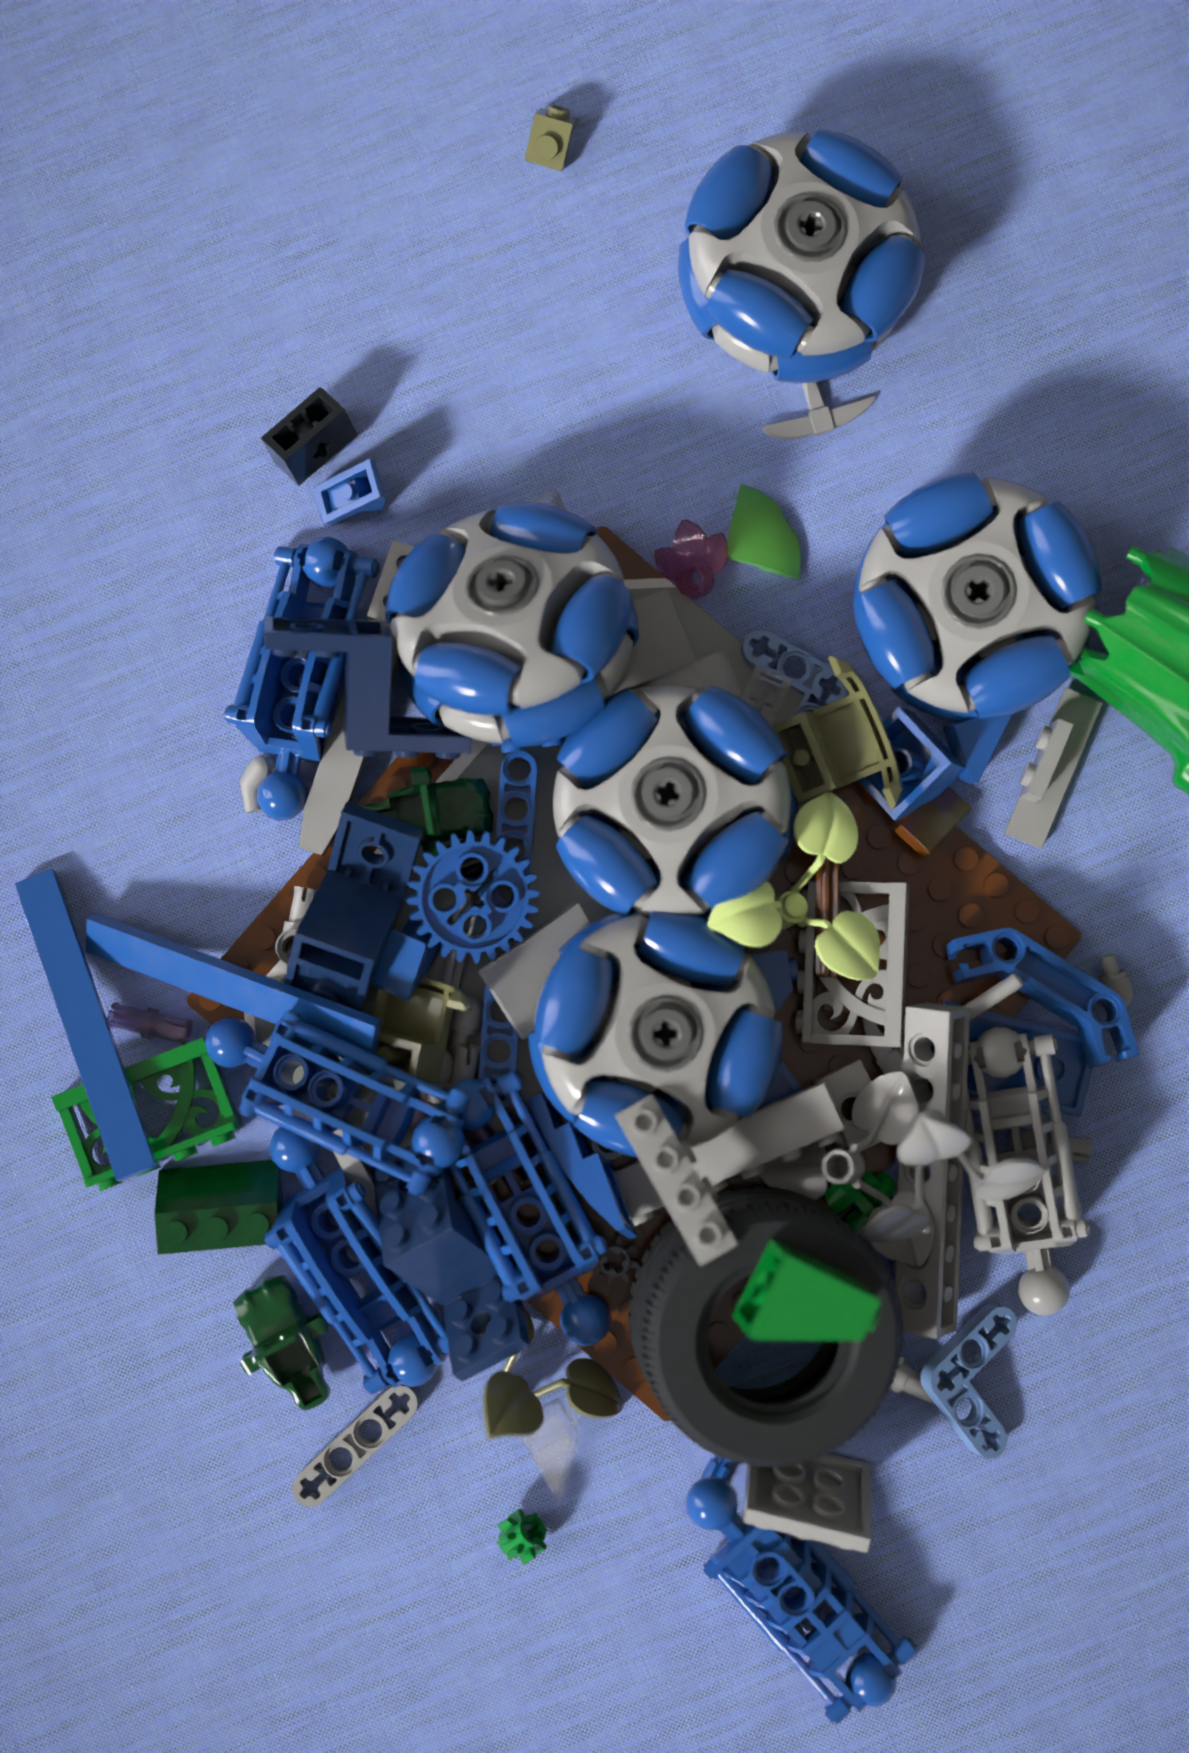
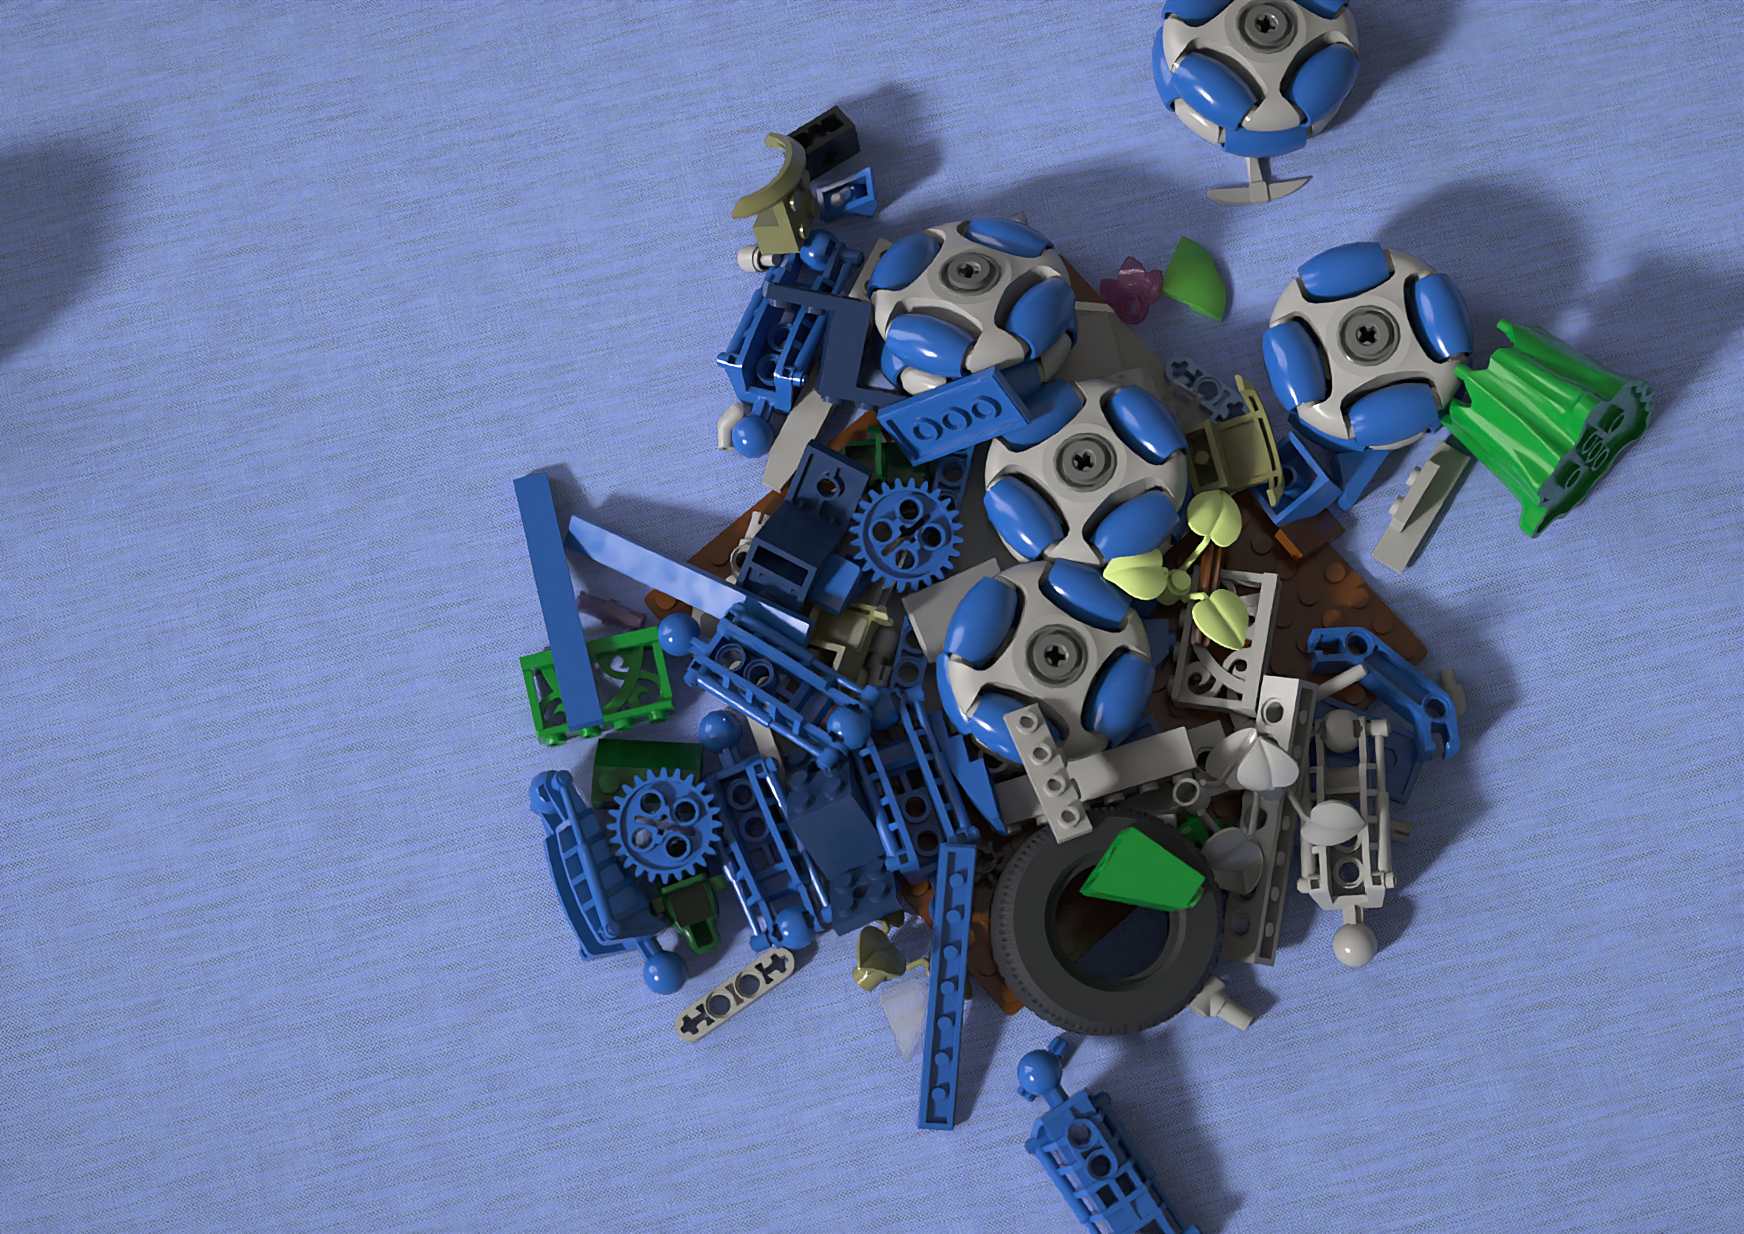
camera: 10 degrees right, 10 degrees down
(179, 1354) = (595, 888): none -> blue piece
(244, 1317) = (658, 856): none -> blue gear
(256, 582) = (751, 260): none -> light grey cylinder
(278, 518) = (784, 204): none -> olive piece
(509, 755) = (954, 416): none -> blue tile
(522, 1536) = (869, 1091): green gear -> none
(592, 1412) = (946, 986): none -> blue tile
(813, 1500) = (1124, 1080): light grey plate -> none
(957, 1382) = (1269, 1015): medium blue beam -> none

